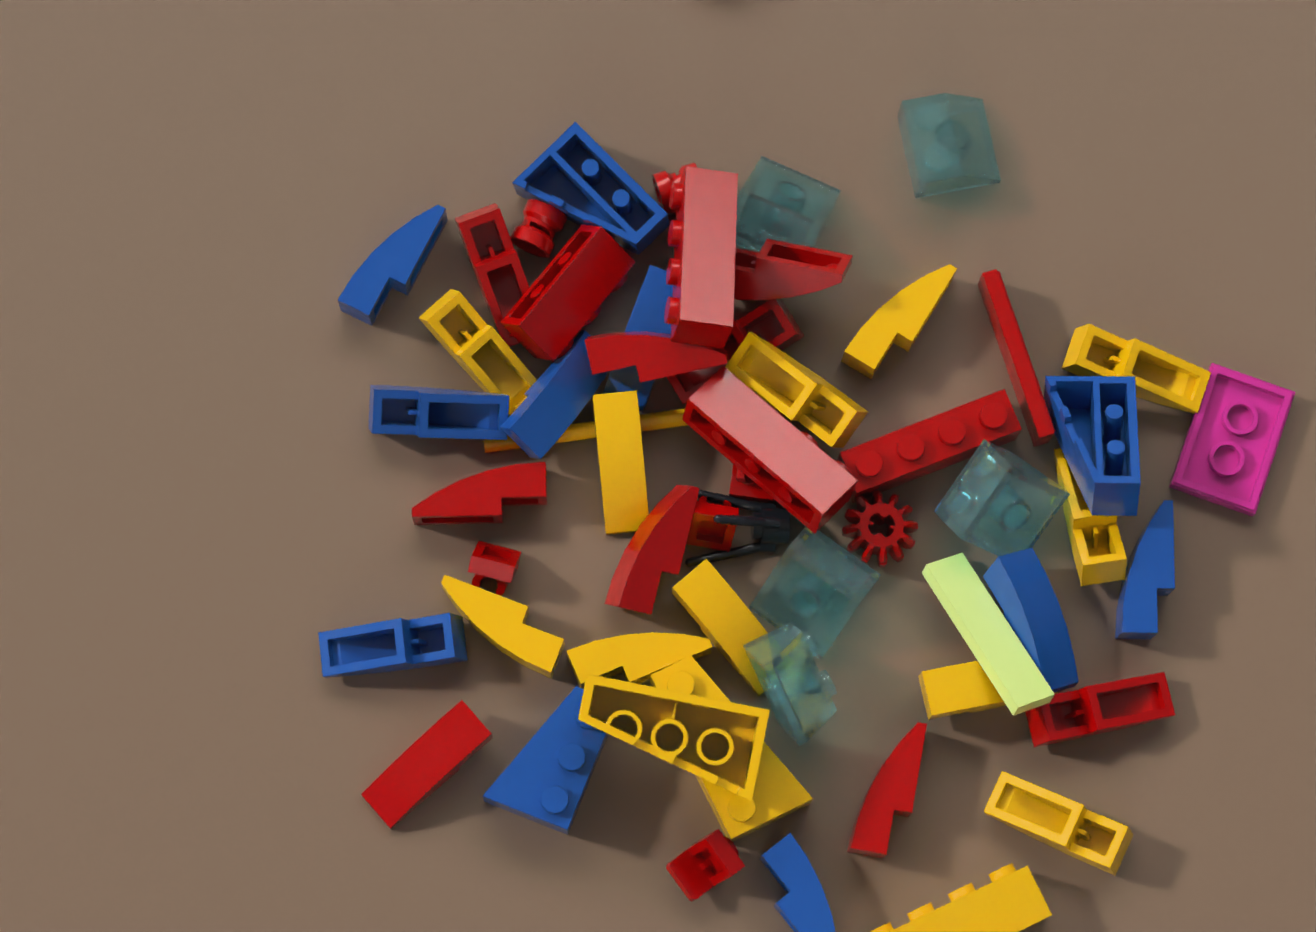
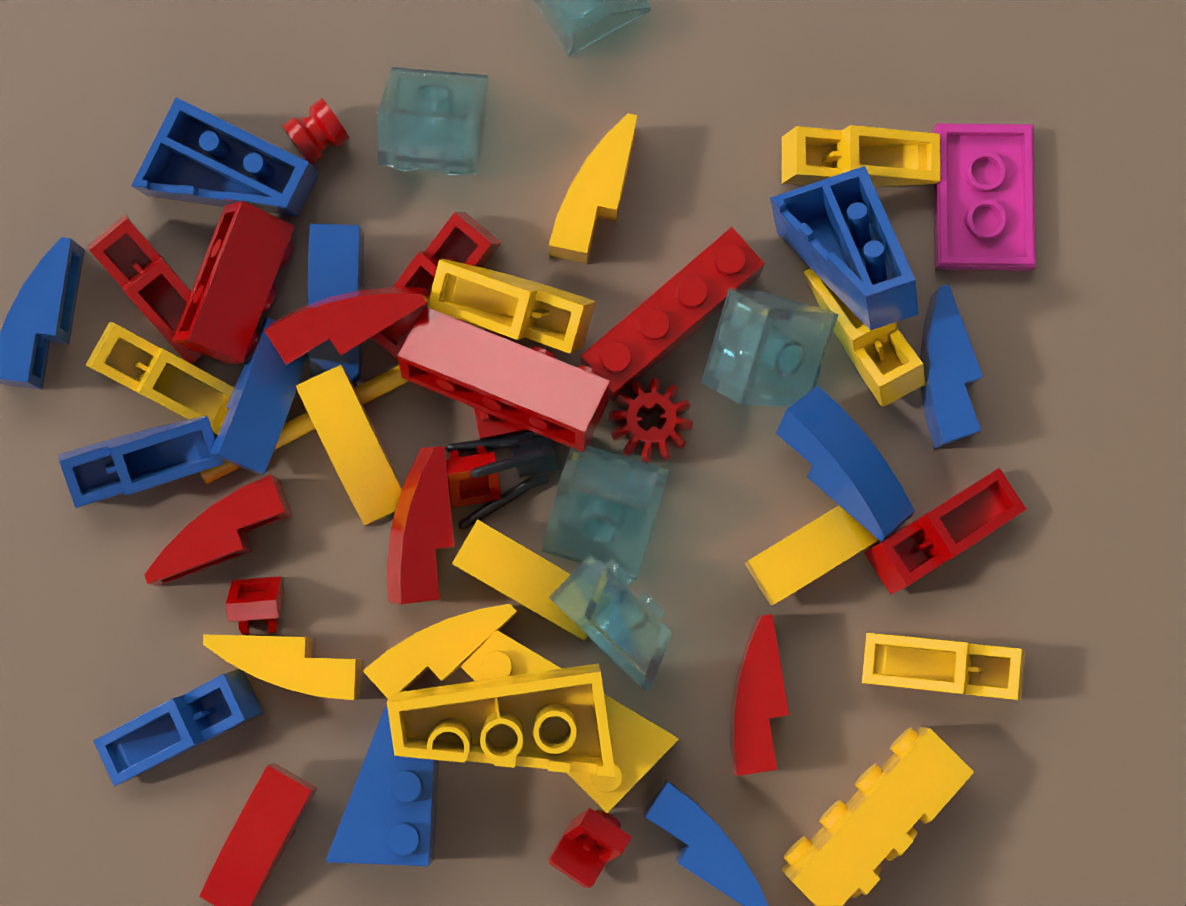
camera: 15 degrees left, 5 degrees up
(538, 228) = (180, 225): red wheel -> none
(703, 257) = (362, 197): brick -> none
(786, 270) = (446, 184): red slope -> none
(988, 634) = (804, 495): yellowish green tile -> none
(1016, 357) = (731, 188): red tile -> none

